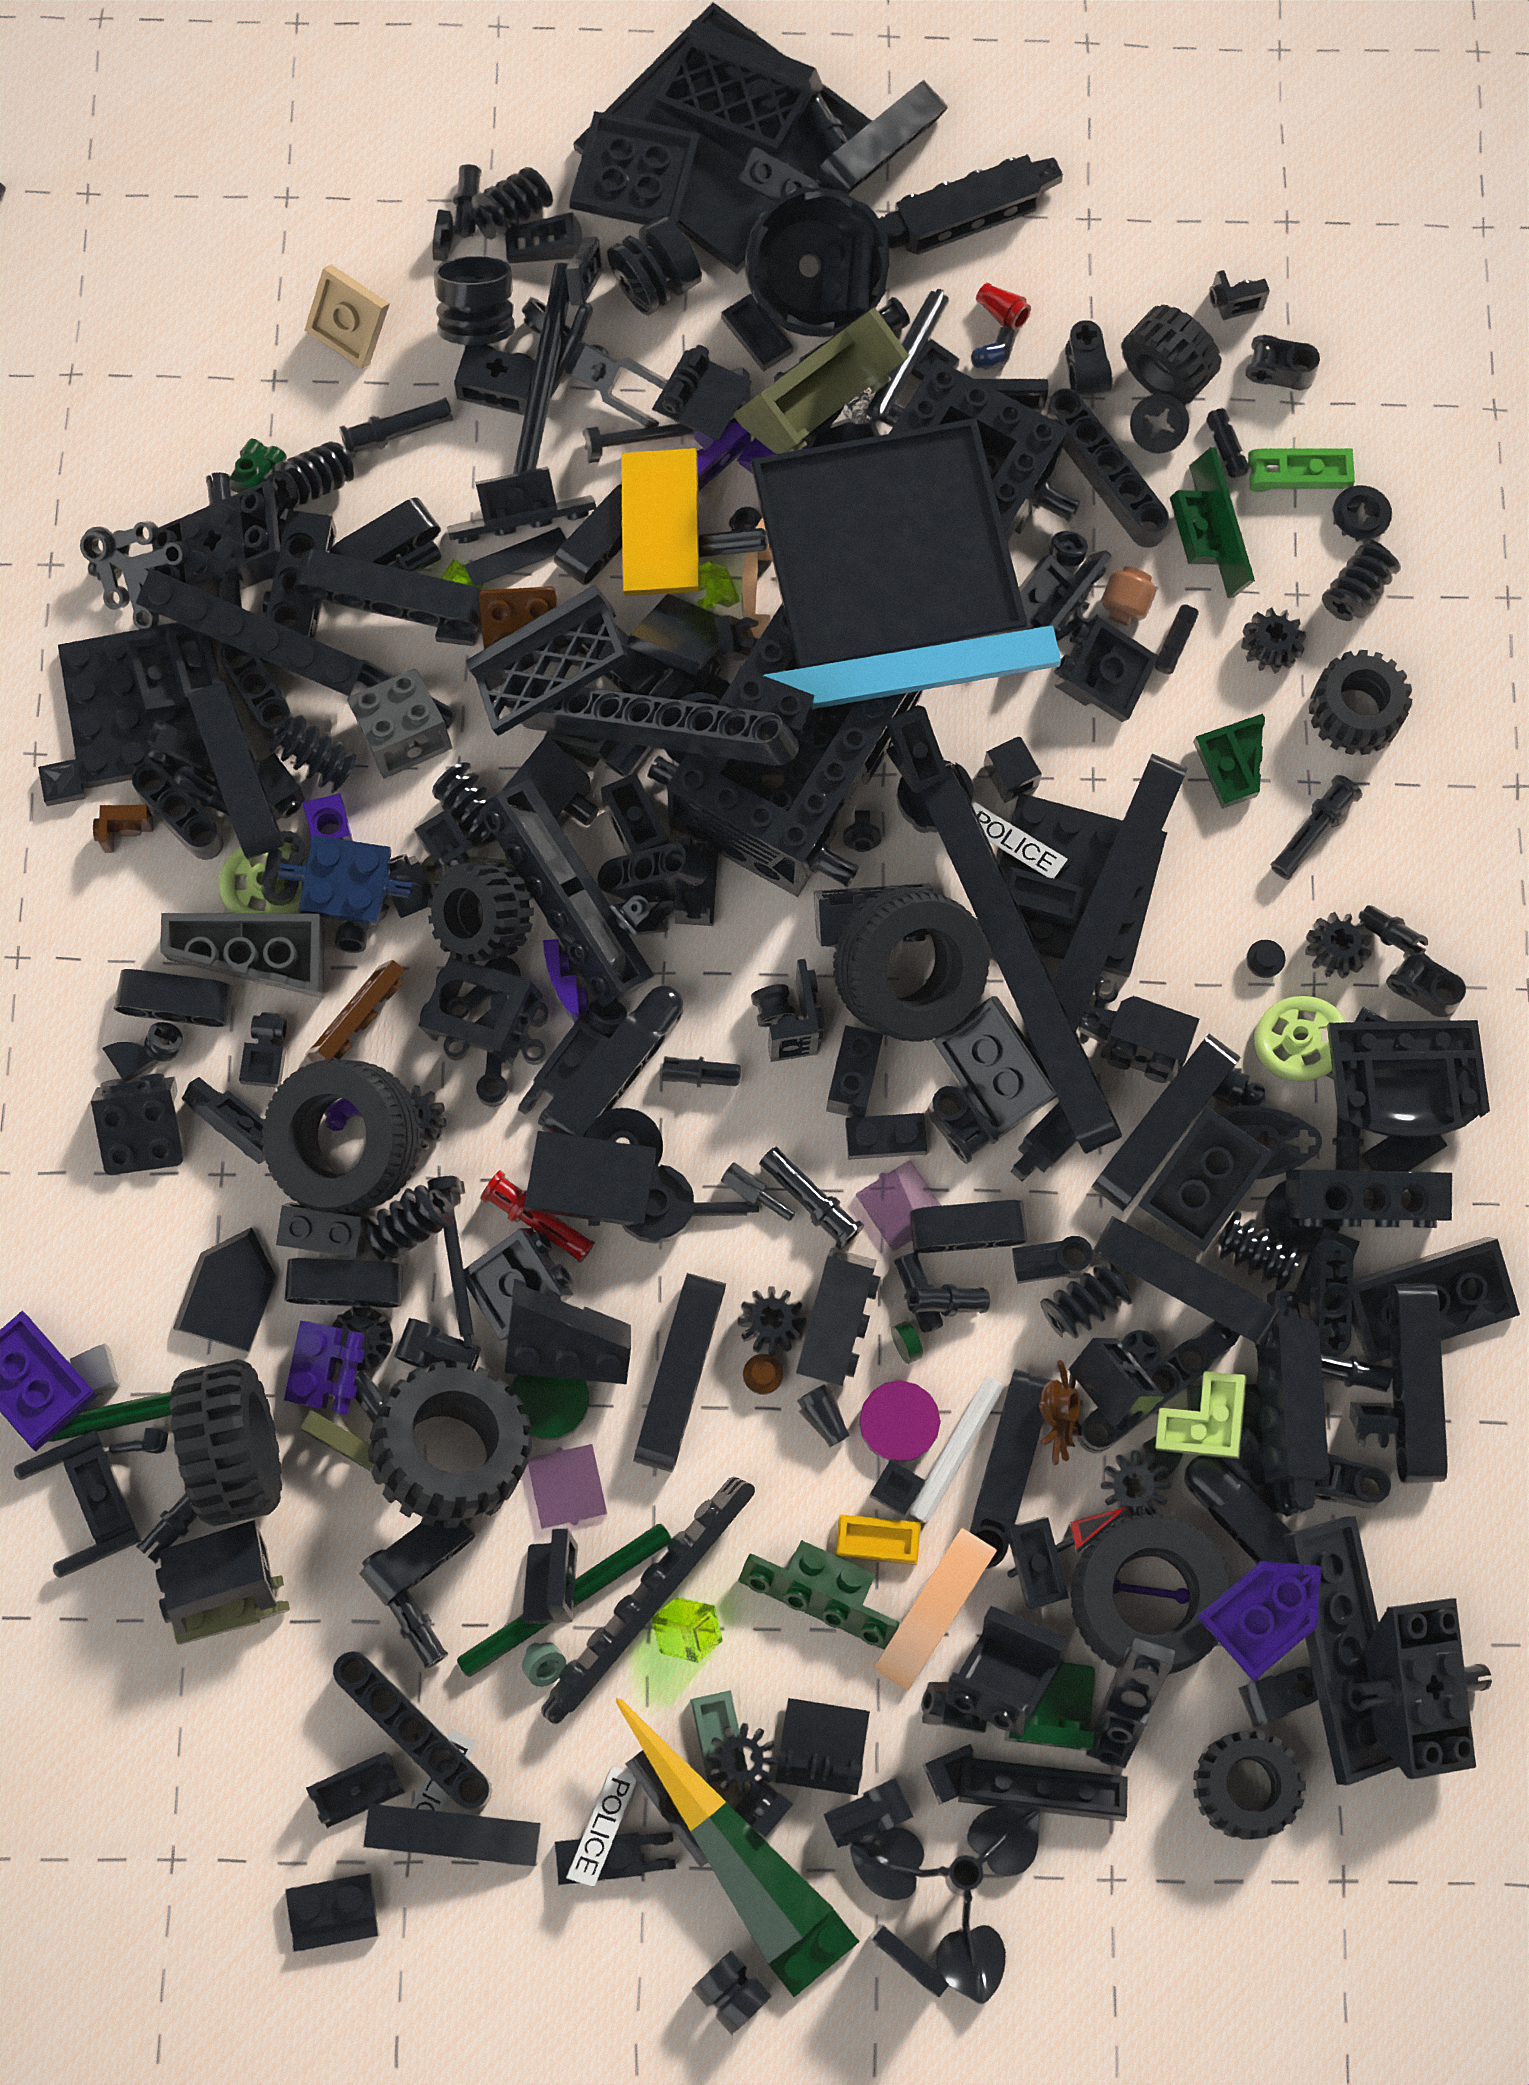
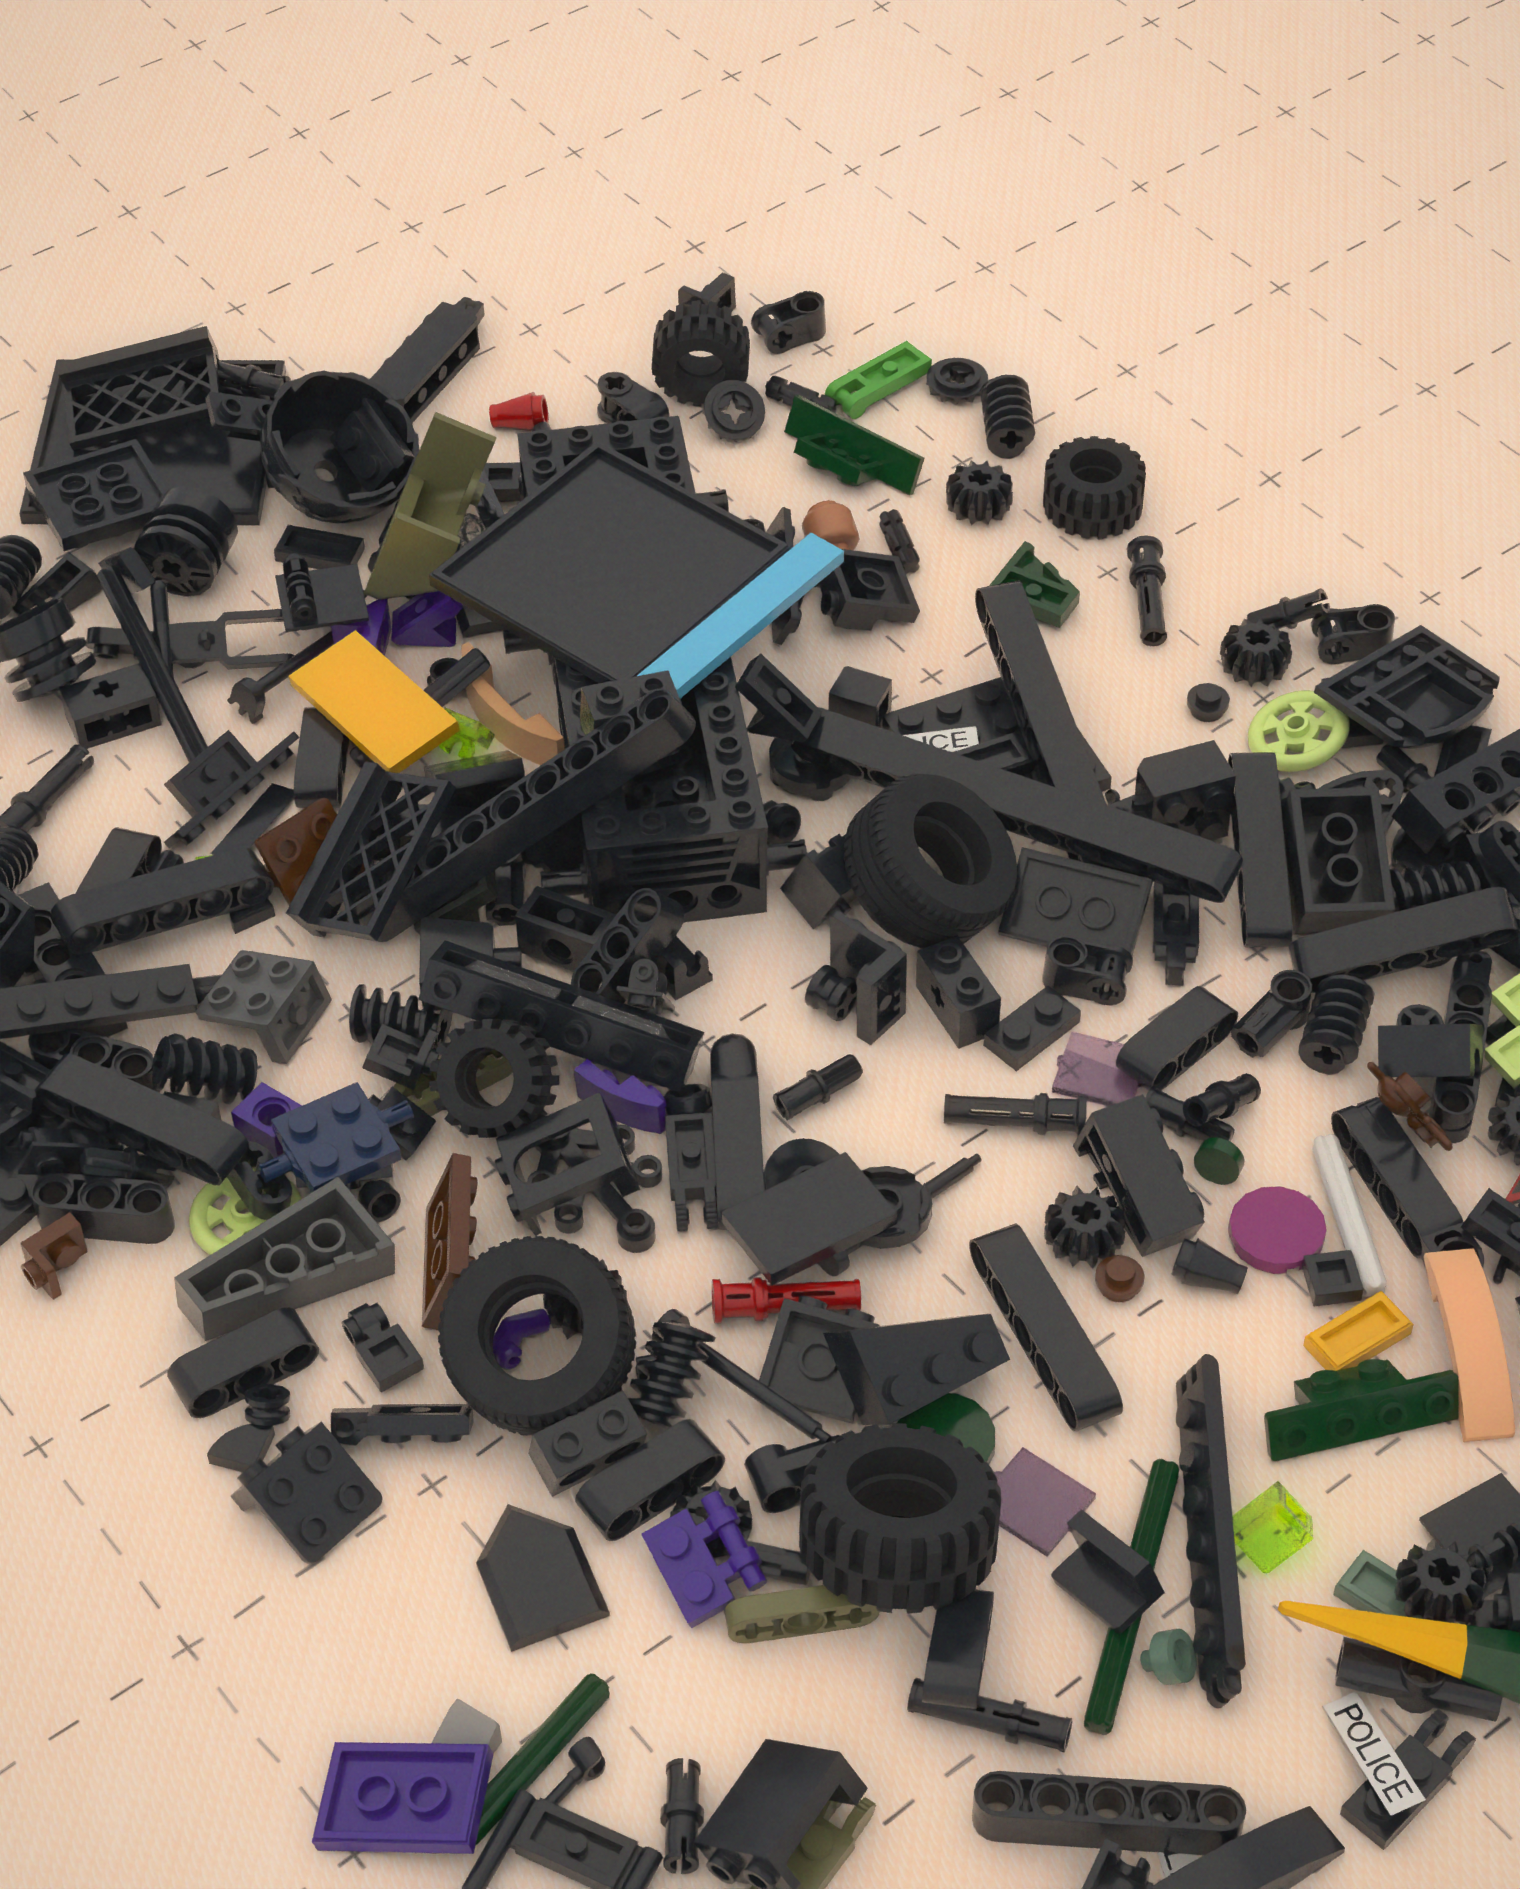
camera: 35 degrees left, 25 degrees down
(226, 1442) = (682, 1663): black tyre -> none
(734, 636) = (523, 745): black tile -> none
(754, 1190) = (960, 1143): black axle -> none
(882, 139) = (308, 343): black beam -> none
(1109, 484) = (750, 468): black beam -> none

